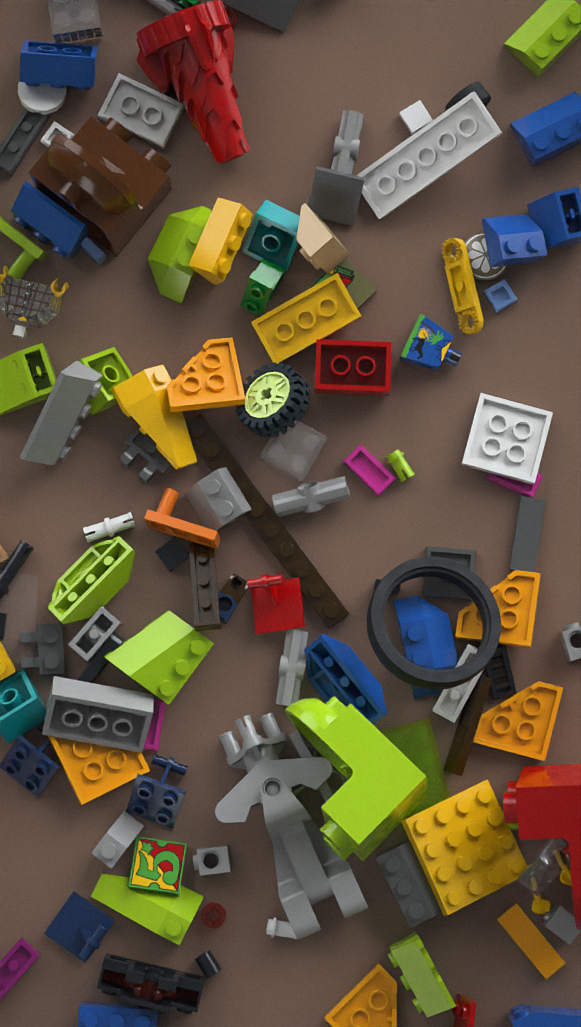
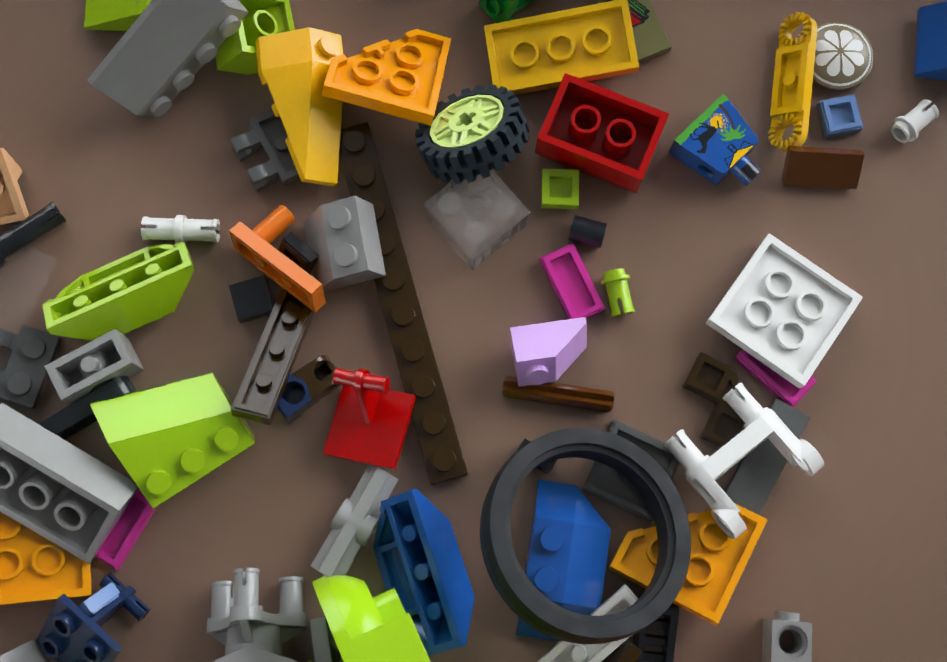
camera: 20 degrees right, 5 degrees down
(158, 770) = (99, 600): none -> medium blue tile
(191, 515) = (298, 252): none -> black tile
(311, 496) = (476, 288): light grey piece -> none
(339, 411) = (560, 189): none -> lime plate
(366, 433) = (587, 231): none -> black hinge
(369, 519) = (546, 349): none -> lavender slope
(385, 543) = (560, 395): none -> reddish brown axle
(491, 557) = (760, 425): none -> white connector
(496, 515) = (713, 381): none -> dark brown tile
(500, 336) = (822, 167): none -> reddish brown tile
(513, 240) = (886, 48): blue slope -> none
(545, 288) = (907, 127): none -> white pin

